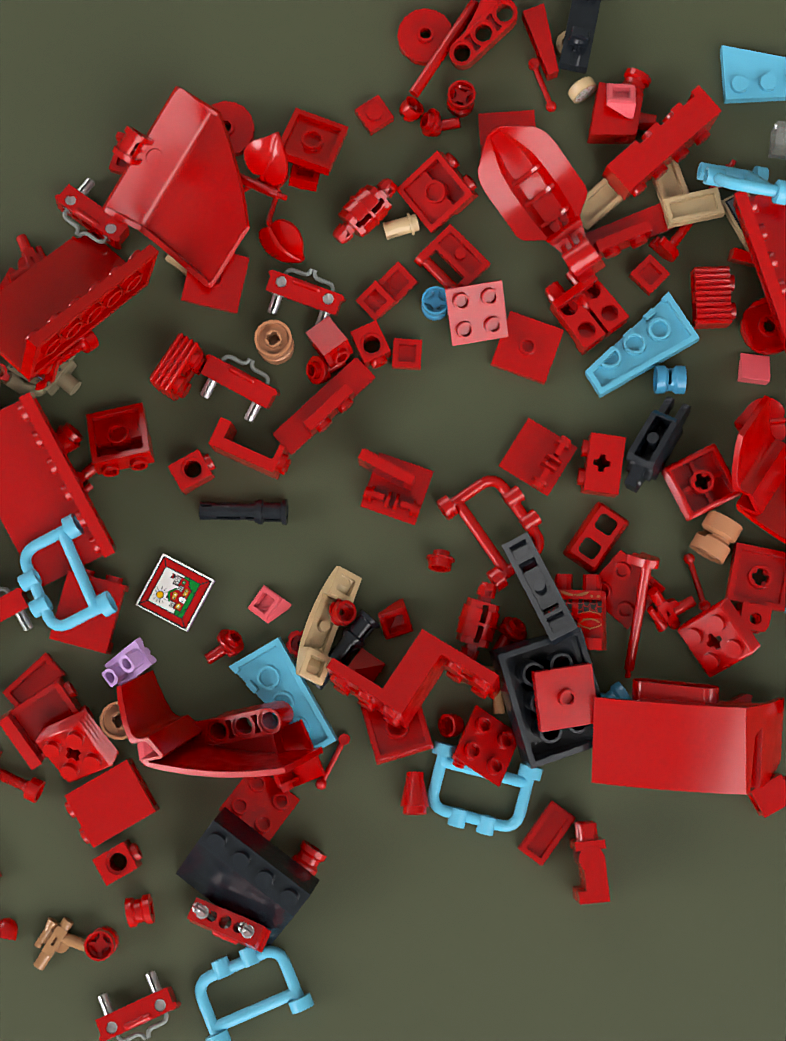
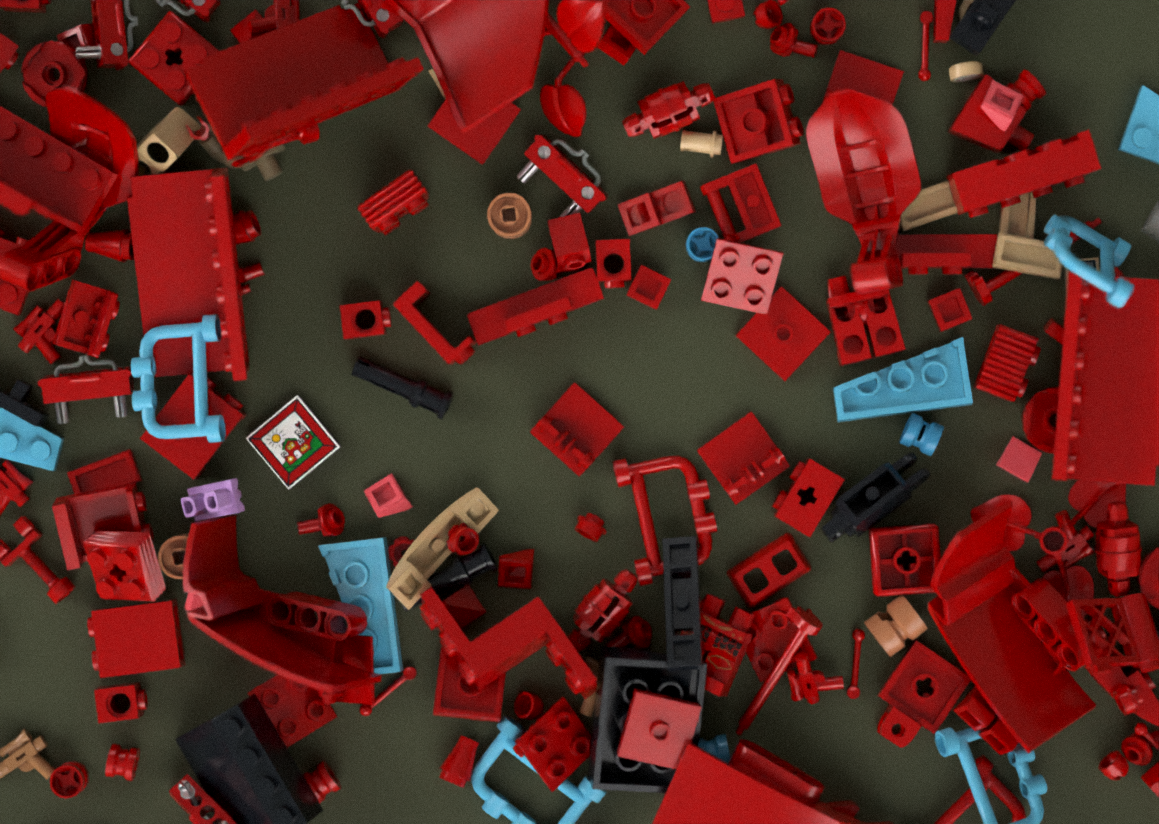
camera: 25 degrees right, 5 degrees up
(119, 439) = (299, 252): red plate -> none
(240, 382) = (454, 242): red piece -> none
(386, 469) = (572, 409): red tile -> none
(721, 621) = (864, 720): red brick -> none

